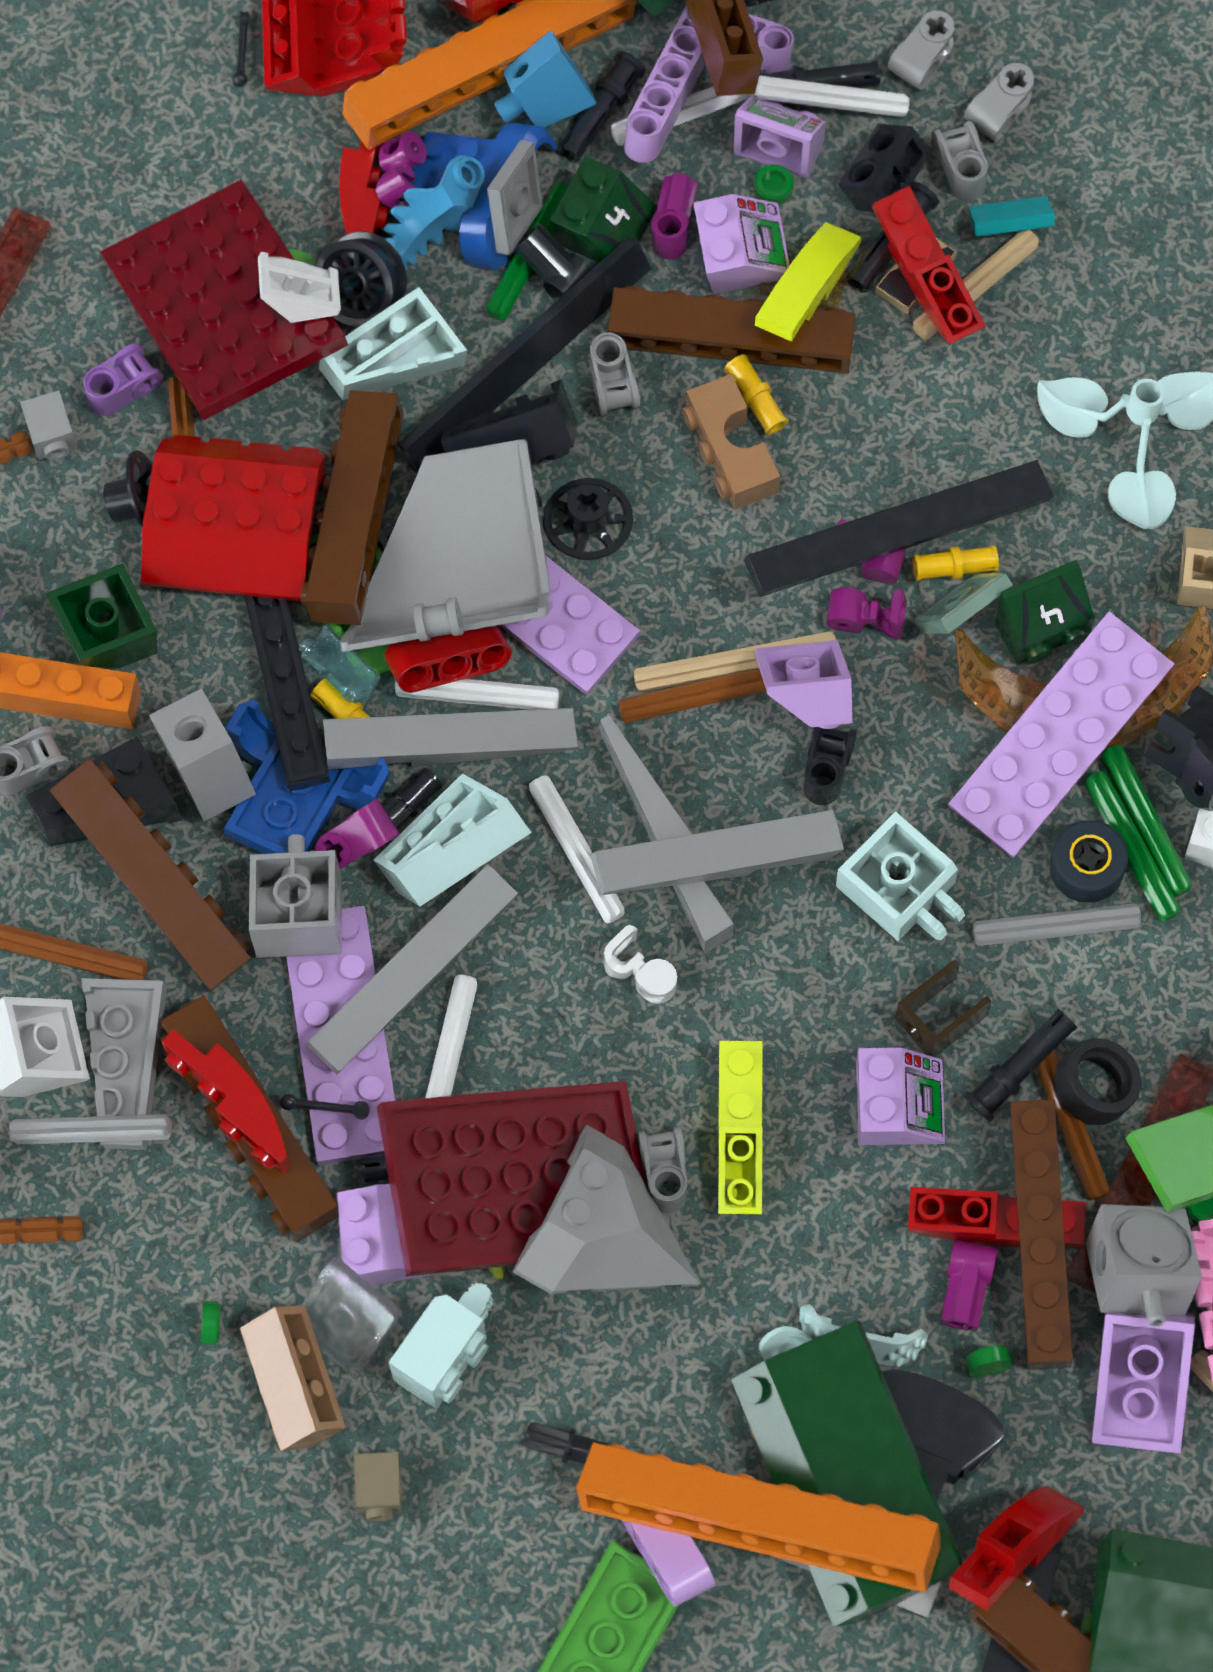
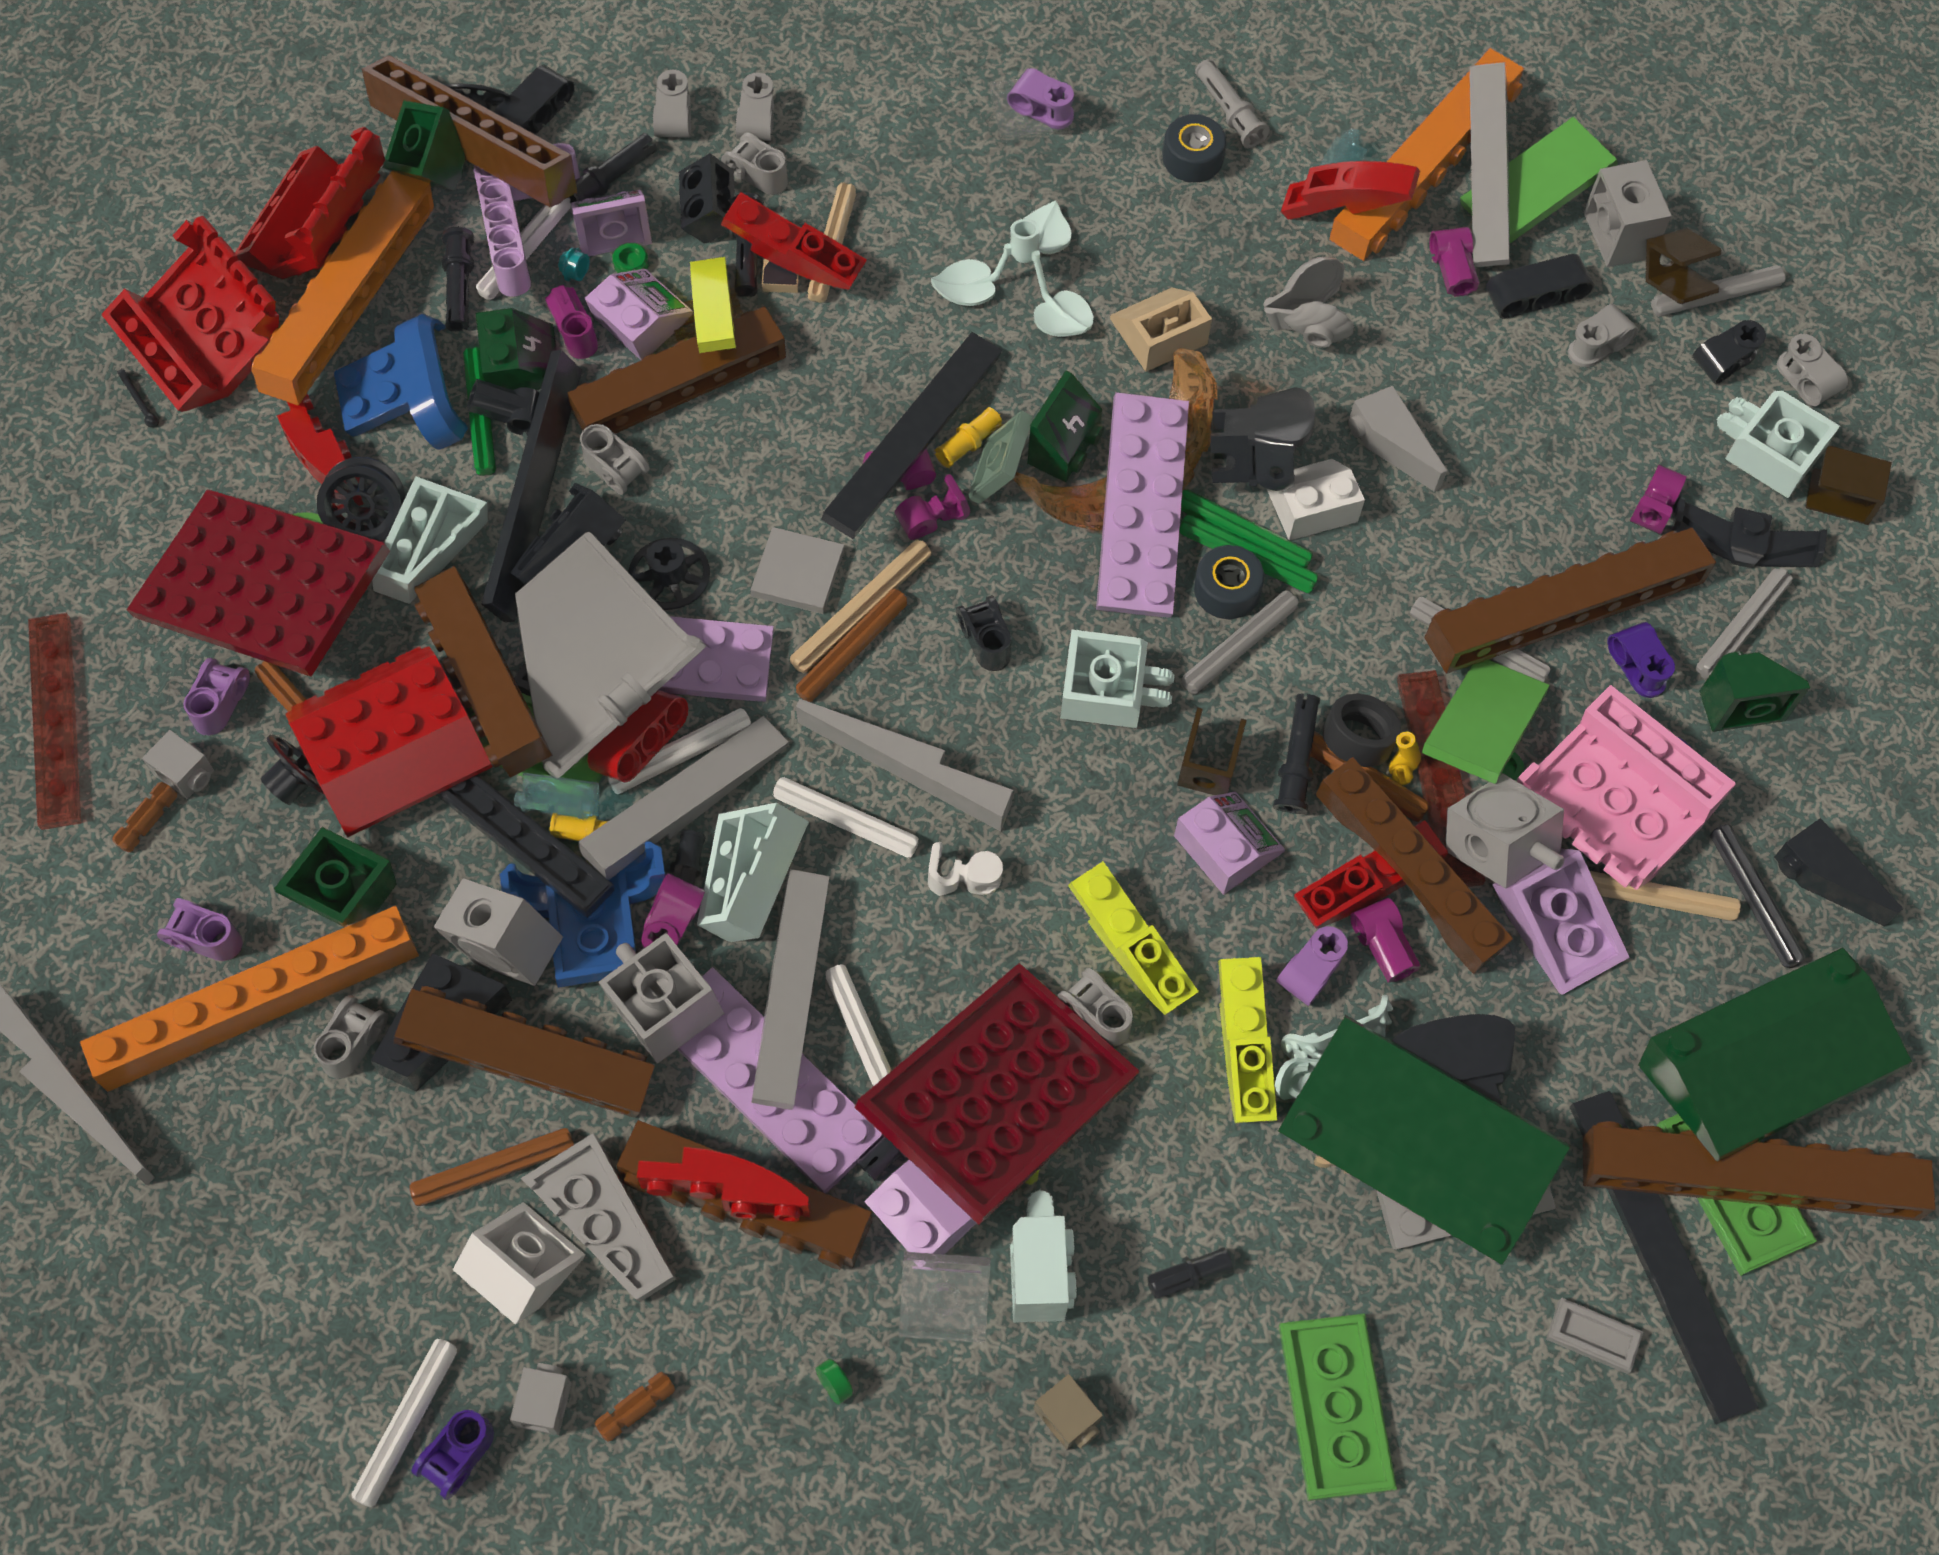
camera: 40 degrees left, 5 degrees down
(90, 1129) = (620, 1293): light grey axle -> none
(292, 1377) = (936, 1376): brick -> none
(298, 288) = (322, 530): white slope -> none
(359, 1109) = (830, 1126): black hinge -> none
(398, 160) = (328, 399): magenta leg -> none
(435, 209) = (385, 413): dark azure plant -> none
(515, 197) = (444, 368): light grey tile -> none
(544, 85) = (404, 282): dark azure torso -> none
(603, 1229) = (1095, 1083): light grey wedge -> none
(673, 1562) = (1328, 1295): lavender beam -> none
(703, 590) = (797, 570): none -> light grey tile
(716, 157) = (574, 264): none -> teal plate
(718, 853) = (963, 745): light grey slope -> none
(743, 473) = (761, 469): medium nougat arch -> none
(756, 394) = (730, 409): yellow pin -> none
(759, 1516) = (1392, 1216): orange brick -> none
(770, 1285) = (1246, 1040): none -> neon yellow slope
(809, 681) = (937, 576): lavender slope -> none
(832, 96) = (631, 172): white axle -> none
(875, 1264) = (1310, 968): none -> medium lavender piece
(988, 1361) = (1446, 985): green tile -> none
(1011, 216) = (823, 181): teal tile -> none
(1012, 1542) = (1587, 1106): red slope -> none
(1114, 1137) = (1405, 759): none -> yellow arm

